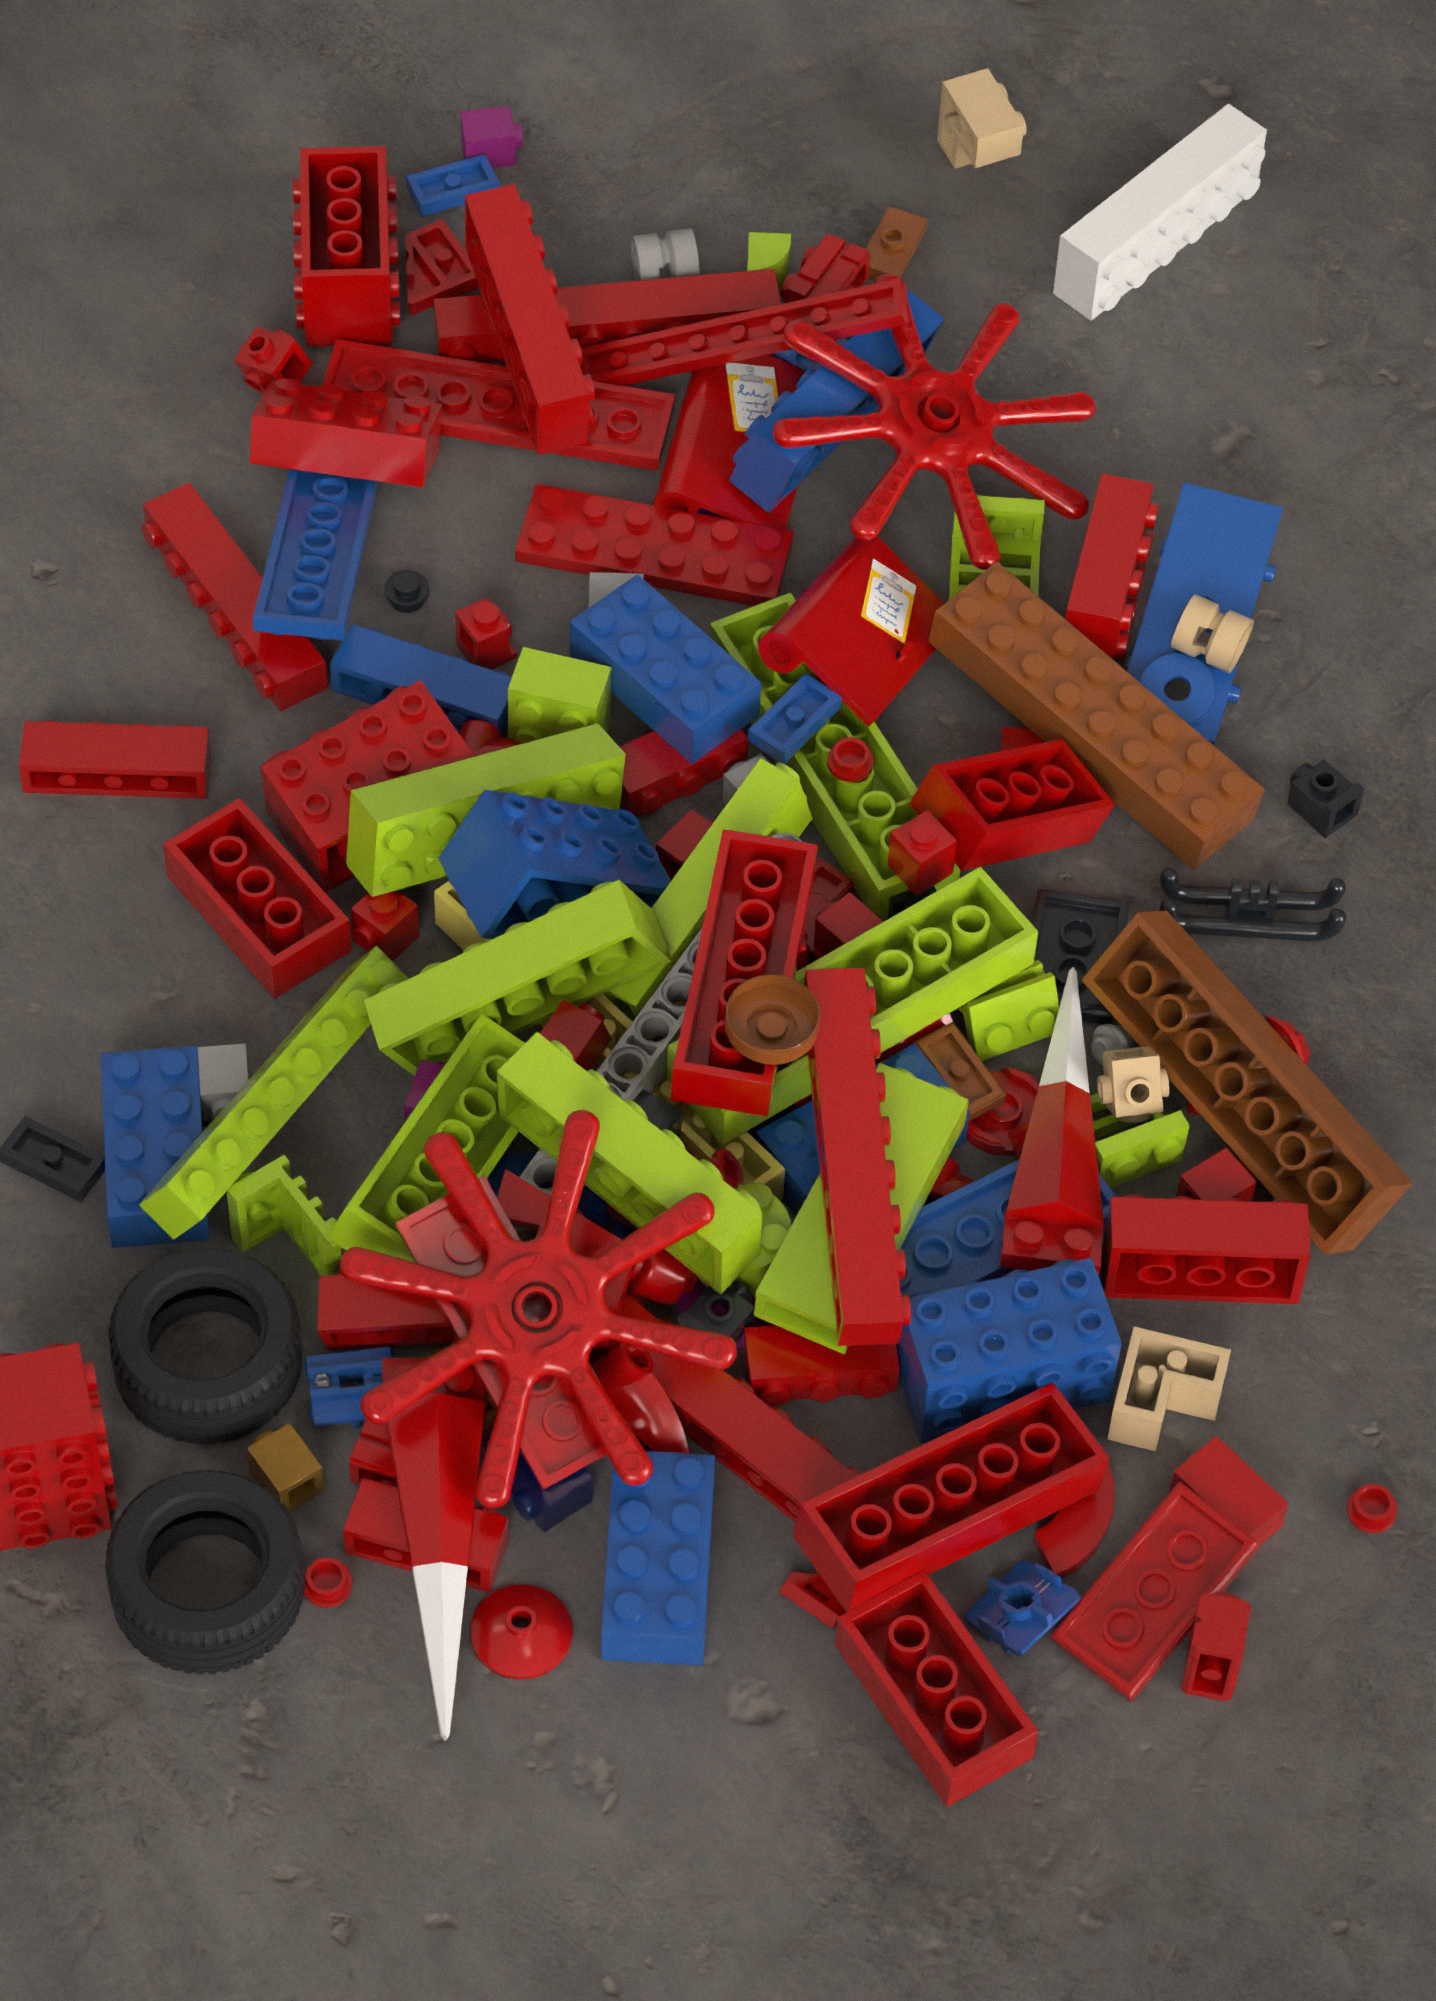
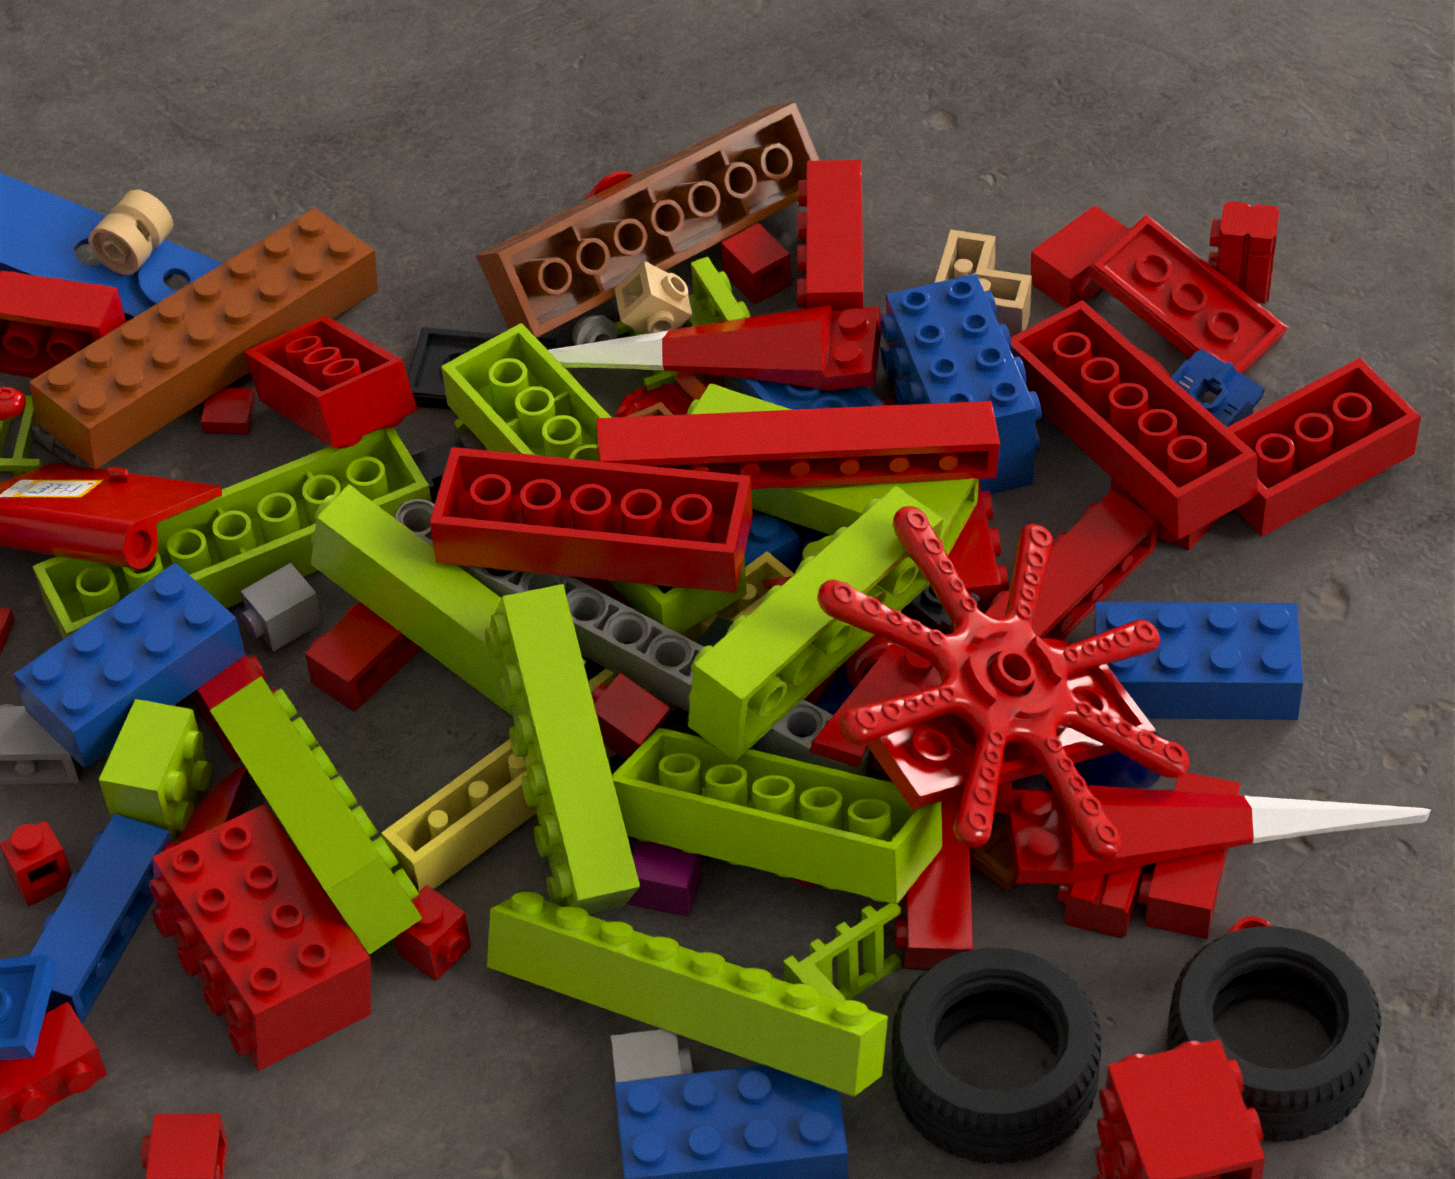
camera: 85 degrees left, 5 degrees down
(257, 897) = (397, 1053): red brick -> none
(285, 1466) = (1129, 982): pearl gold brick -> none
(330, 1370) = (1016, 913): blue piece -> none
(524, 1651) = (1256, 768): red dish -> none
(531, 853) = (415, 734): blue brick -> none
(772, 1019) = (681, 465): dark orange piece -> none
(794, 718) = (215, 545): blue plate -> none
(813, 1595) = (1209, 553): red piece -> none
(850, 760) = (270, 501): red plate -> none
(922, 852) = (400, 434): red brick -> none
(1253, 909) = (431, 239): black piece -> none
(1324, 797) = (308, 185): black brick -> none
(1372, 1508) = (1076, 170): red plate -> none

